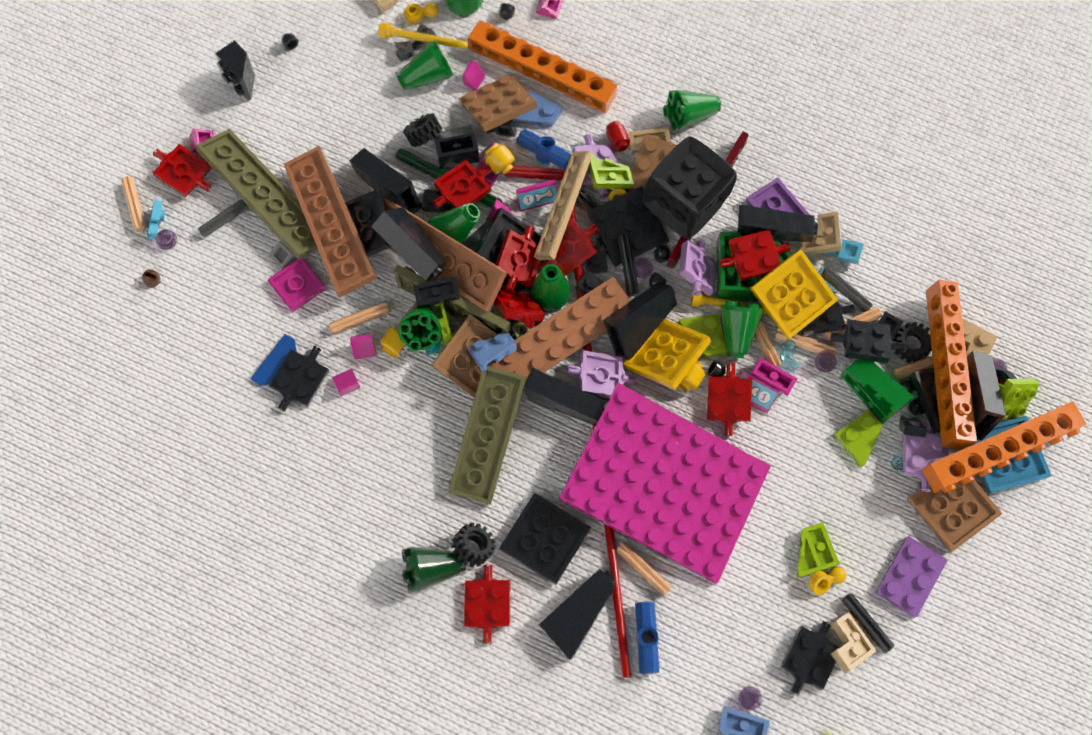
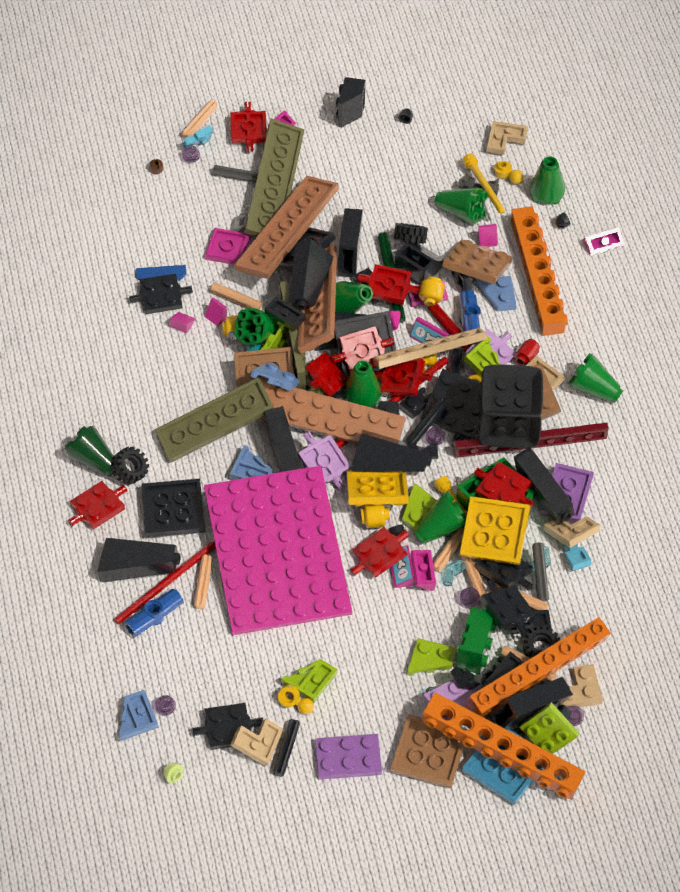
camera: 55 degrees right, 15 degrees down
(558, 441) = (249, 465): none -> medium blue wing
(698, 267) = (461, 462): lavender plate -> none

